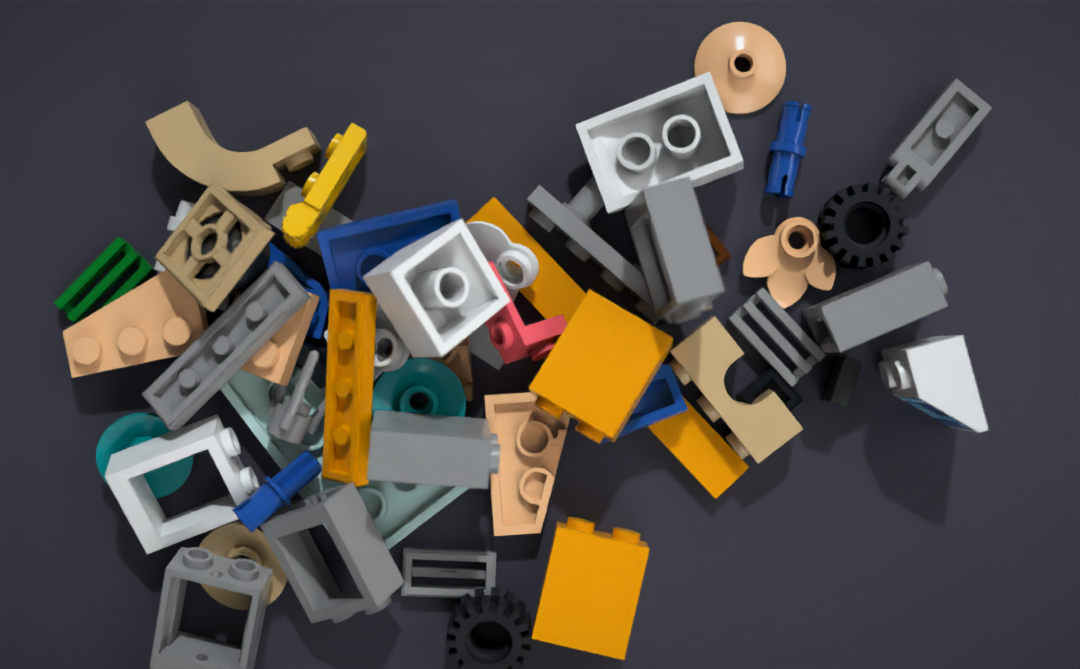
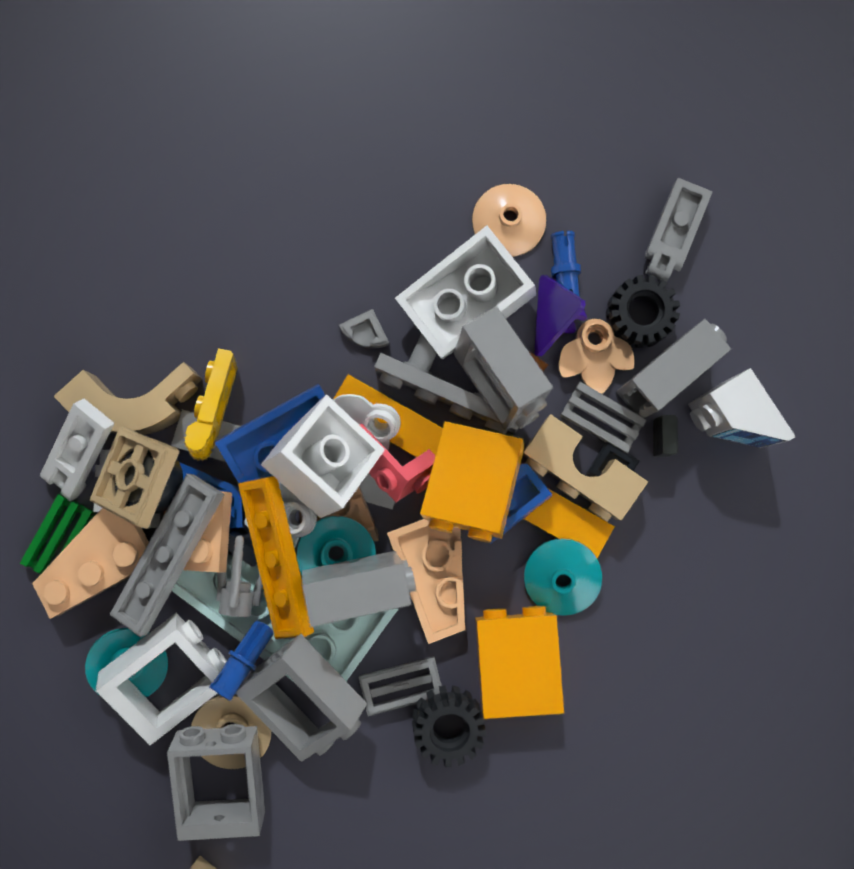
camera: 20 degrees left, 5 degrees down
(155, 192) = (76, 449): none -> white plate
(529, 151) = (365, 331): none -> light grey tile
(676, 485) = (560, 558): none -> teal dish
(759, 197) = (555, 313): none -> dark purple piece

